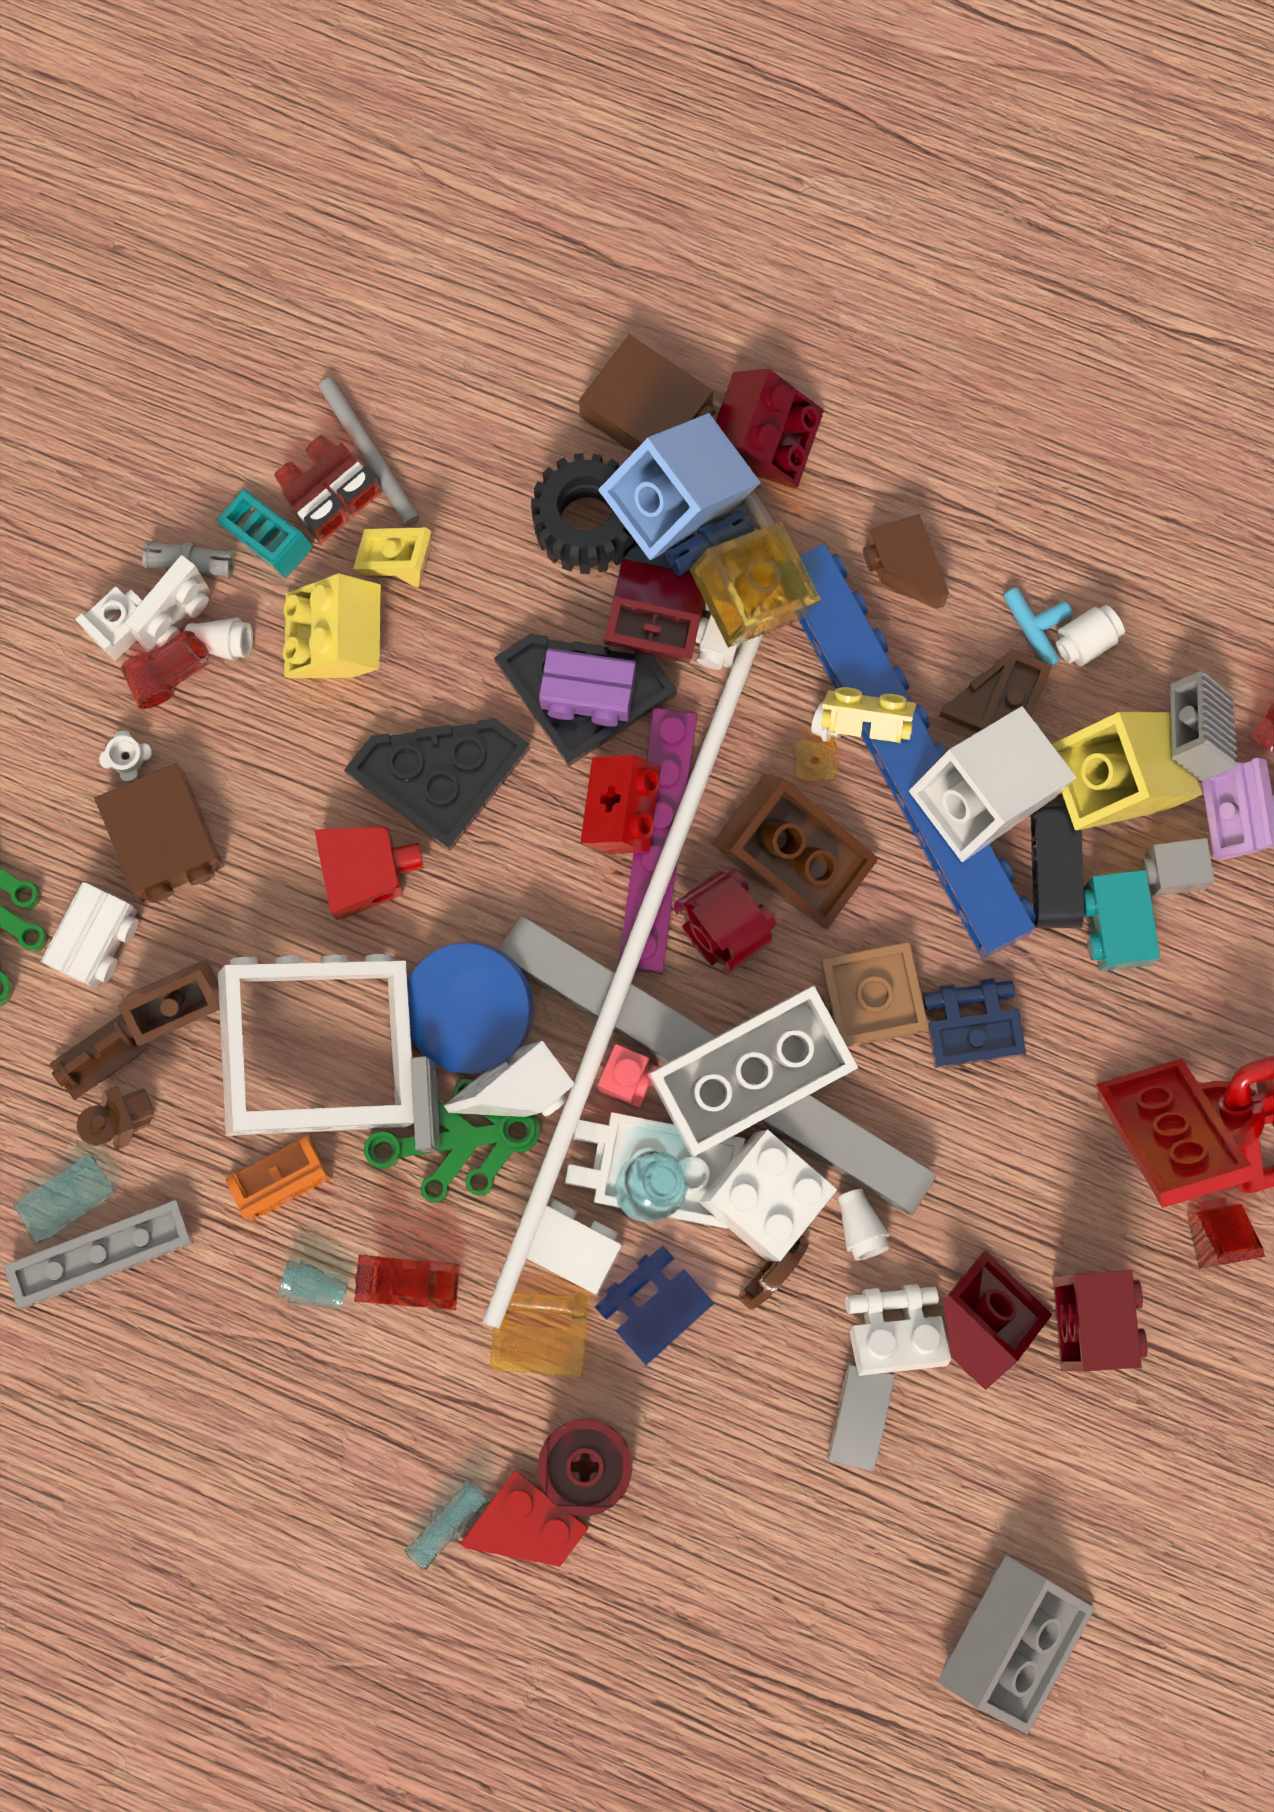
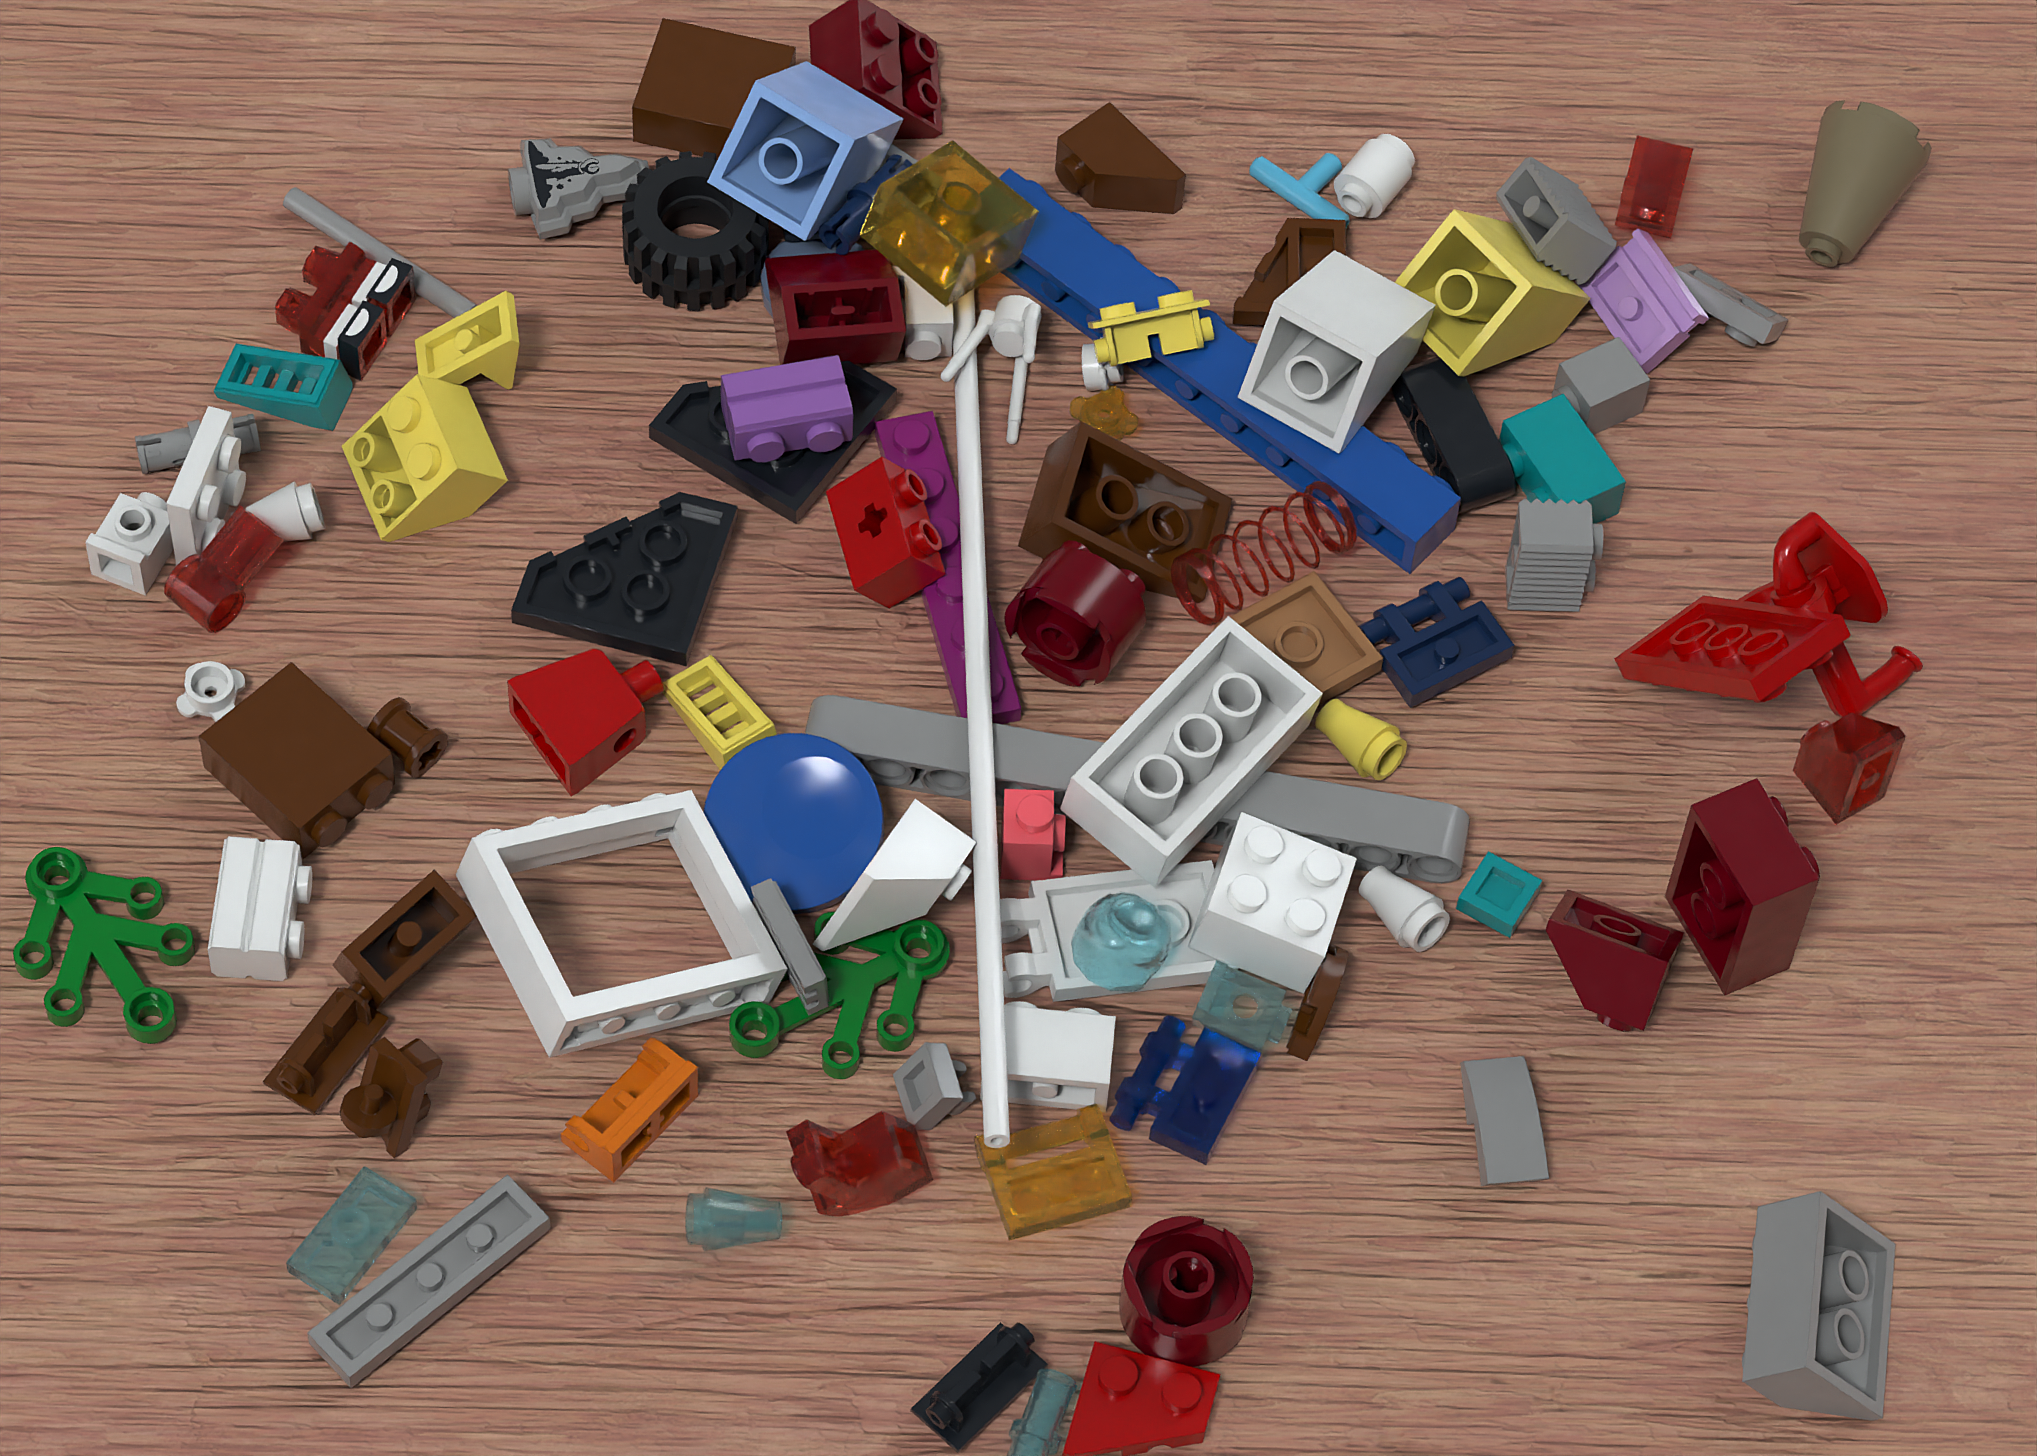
camera: 30 degrees left, 20 degrees down
(239, 840) = (408, 737): none -> reddish brown bush
(426, 1471) = (980, 1385): none -> black hinge
(461, 925) = (707, 729): none -> light yellow slope
(480, 1240) = (931, 1086): none -> light grey tile
(516, 441) = (567, 183): none -> light grey rock
(714, 1249) = (1217, 1013): none -> clear light blue brick
(776, 674) = (1013, 334): none -> white plant
(816, 921) = (1178, 574): none -> clear red piece
(888, 1084) = (1364, 741): none -> light yellow cone
(897, 1344) = (1507, 1022): white plate -> none
(932, 1240) = (1499, 894): none -> teal plate
(1080, 999) = (1552, 556): none -> light grey brick

